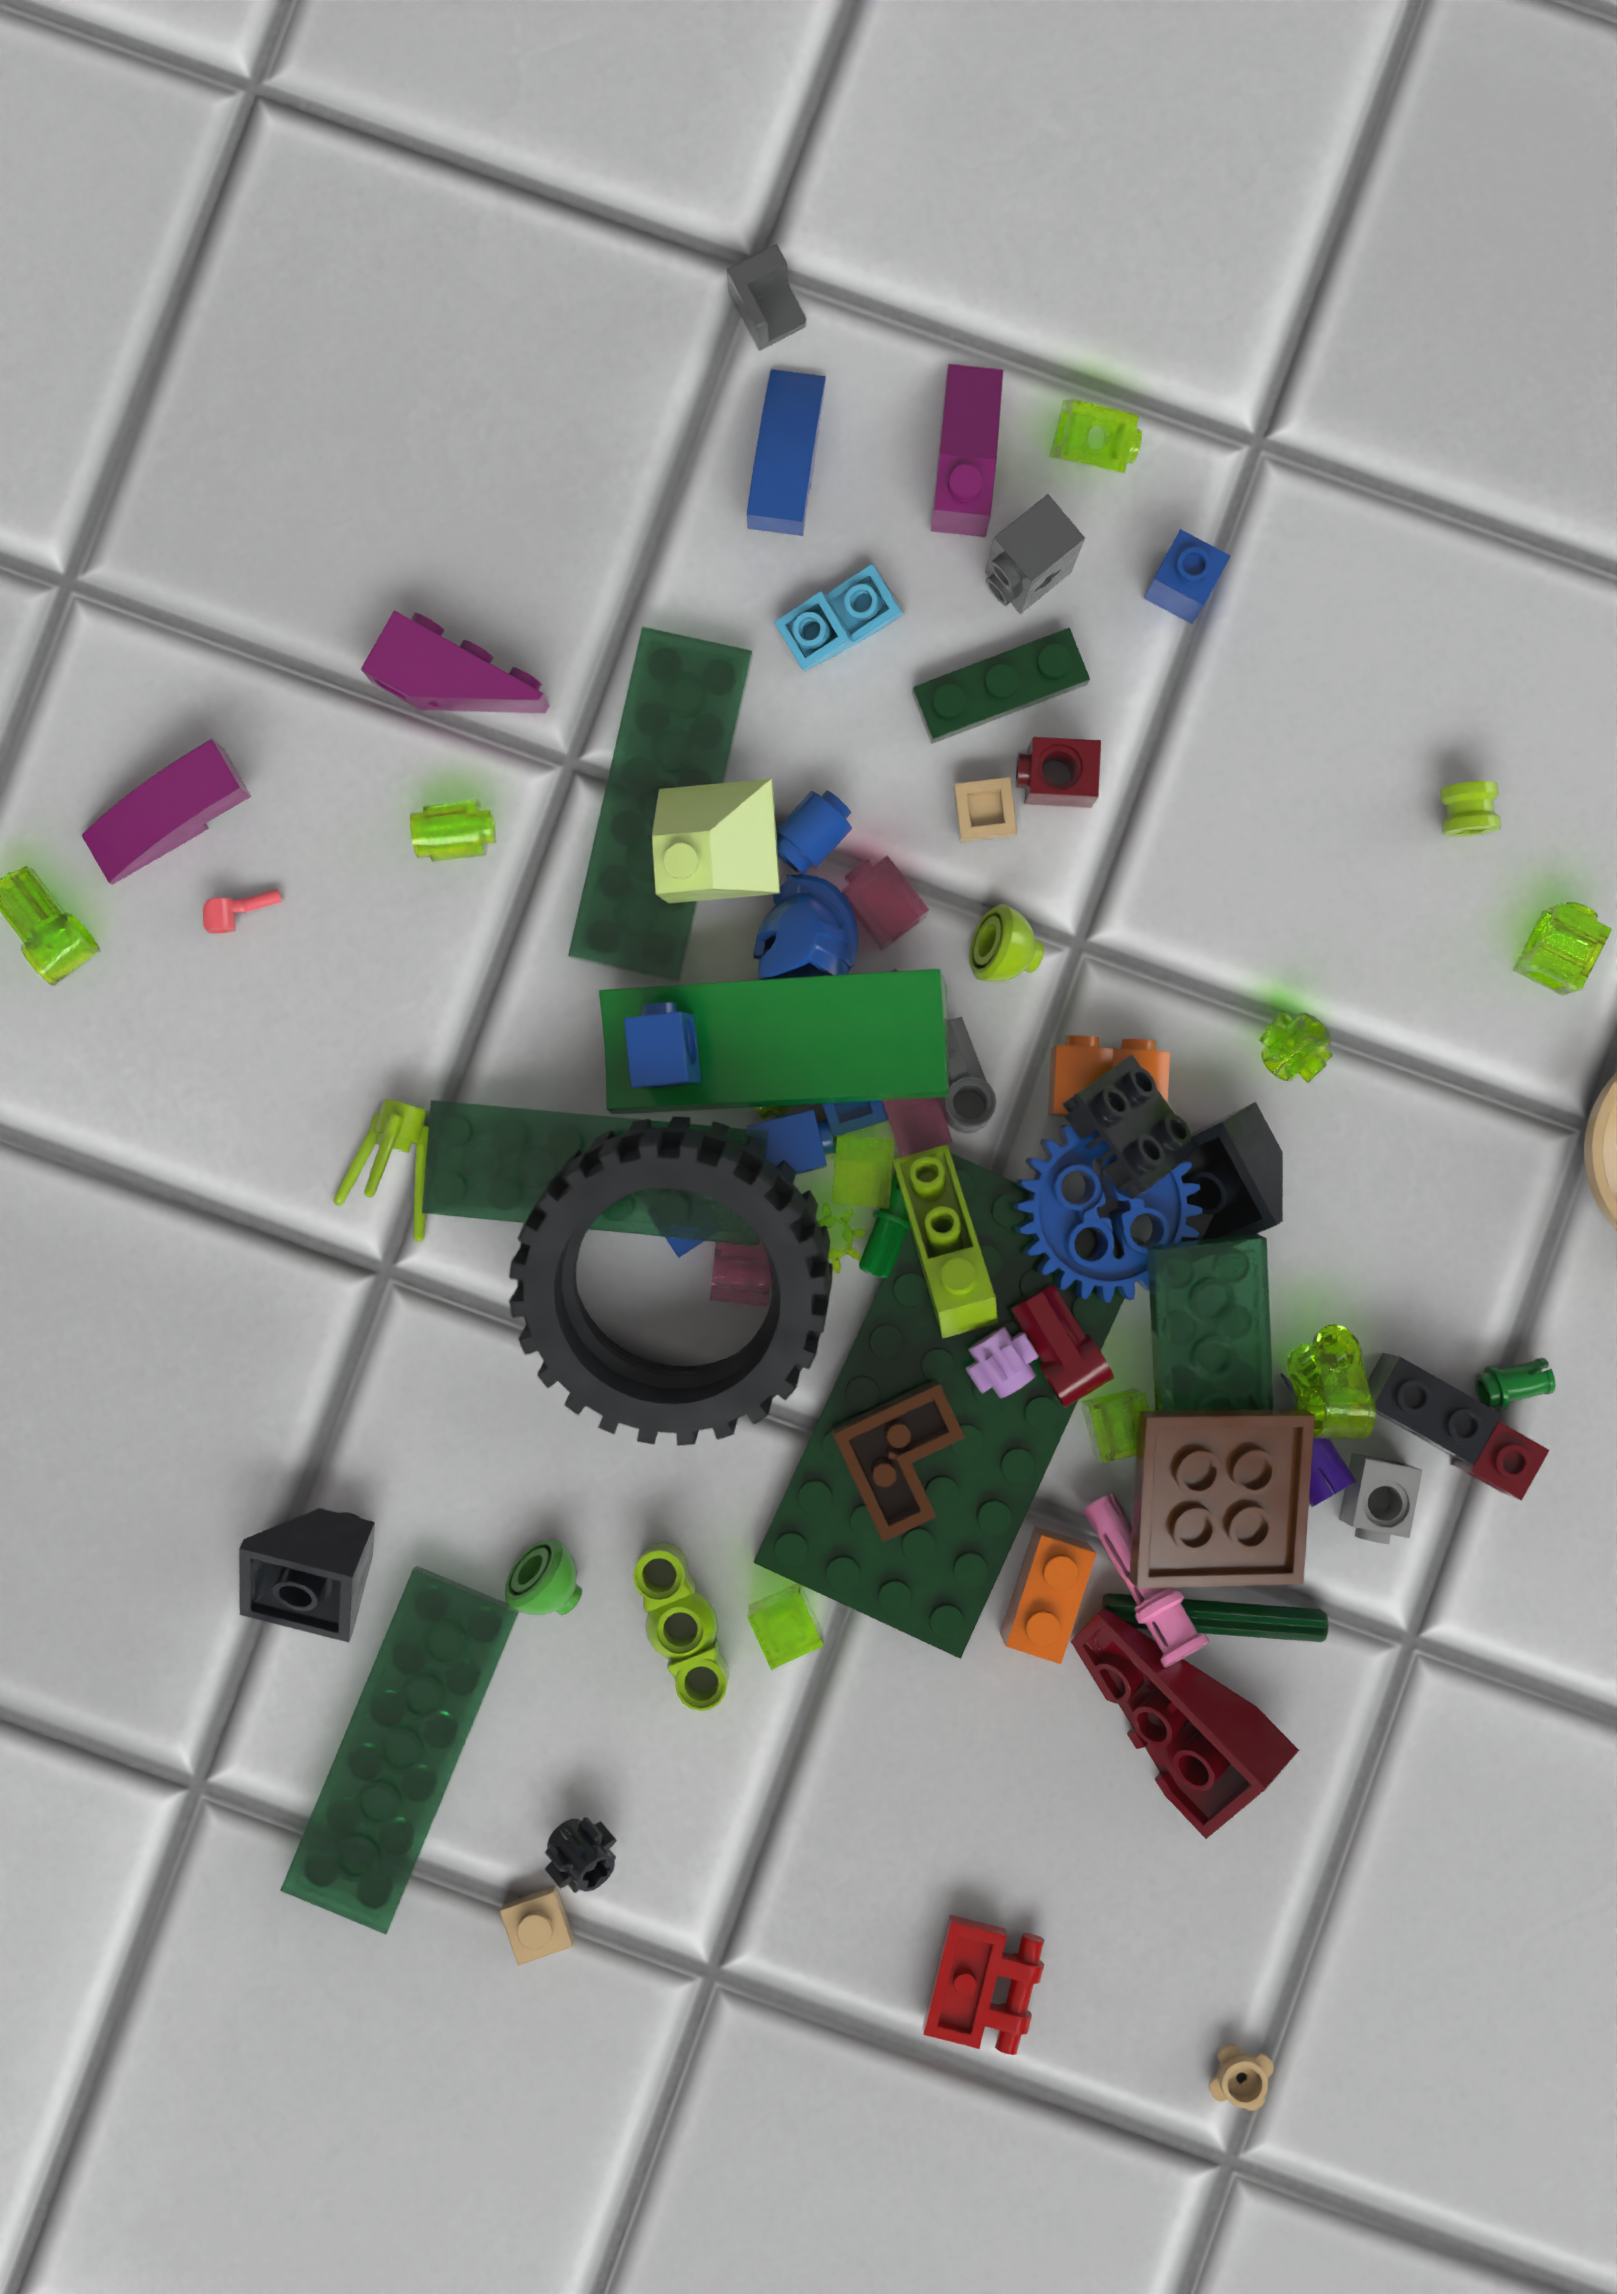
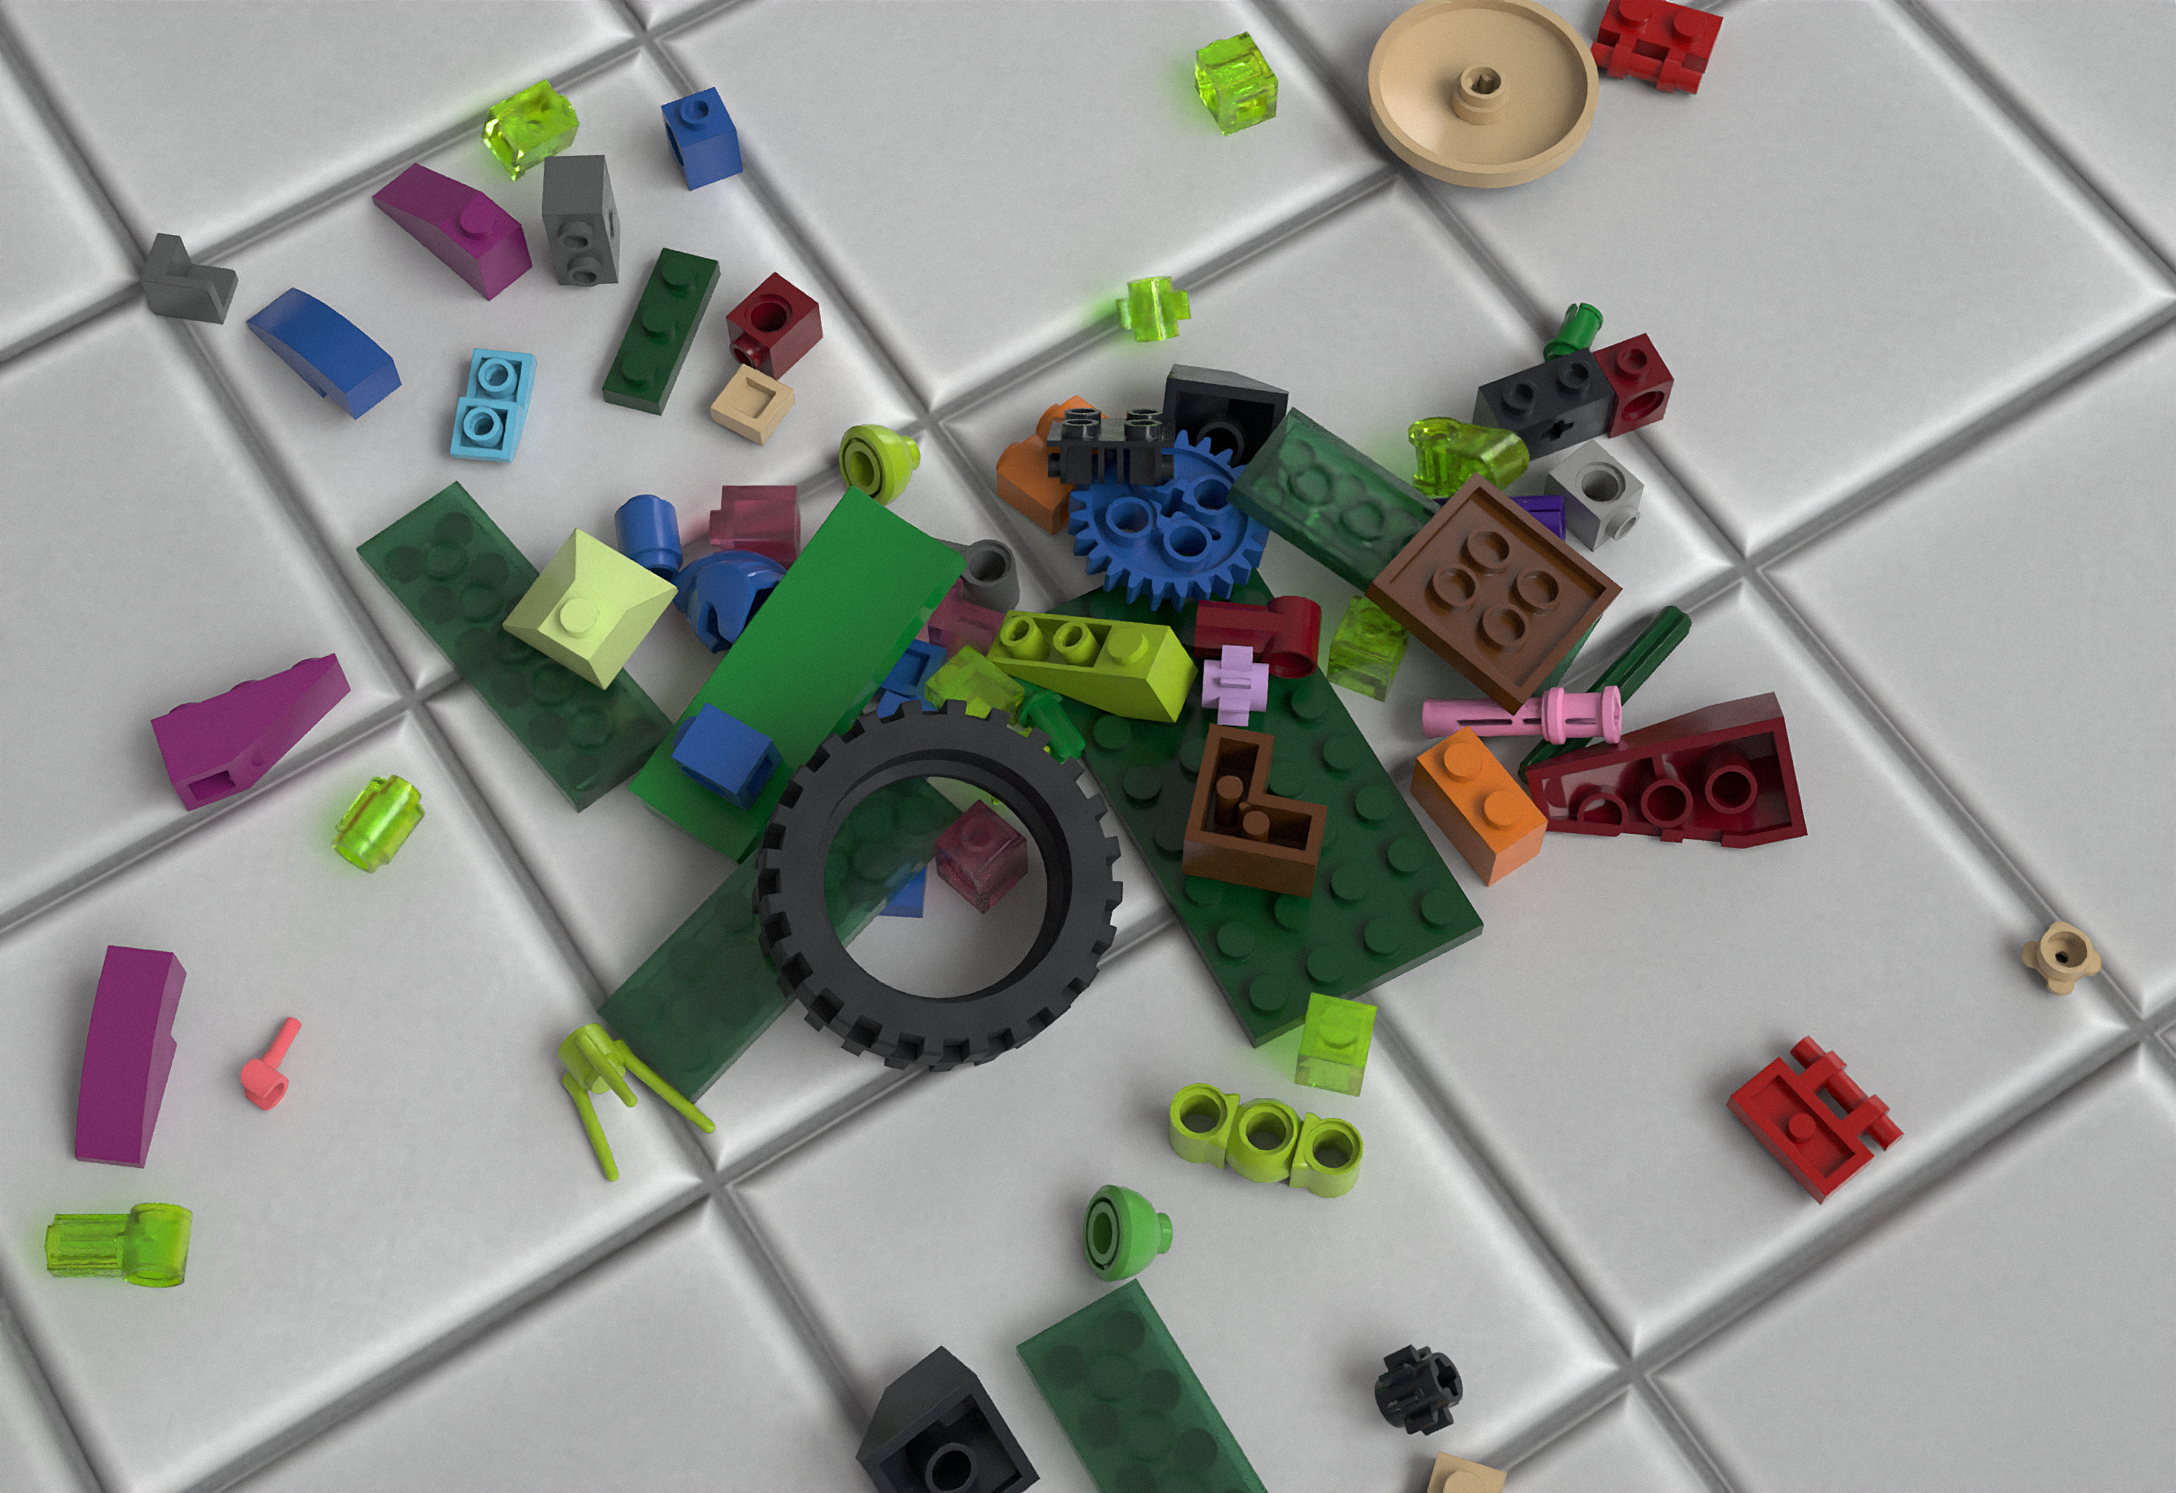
camera: 55 degrees left, 25 degrees down
(1470, 808) = (1067, 73): lime wheel -> none

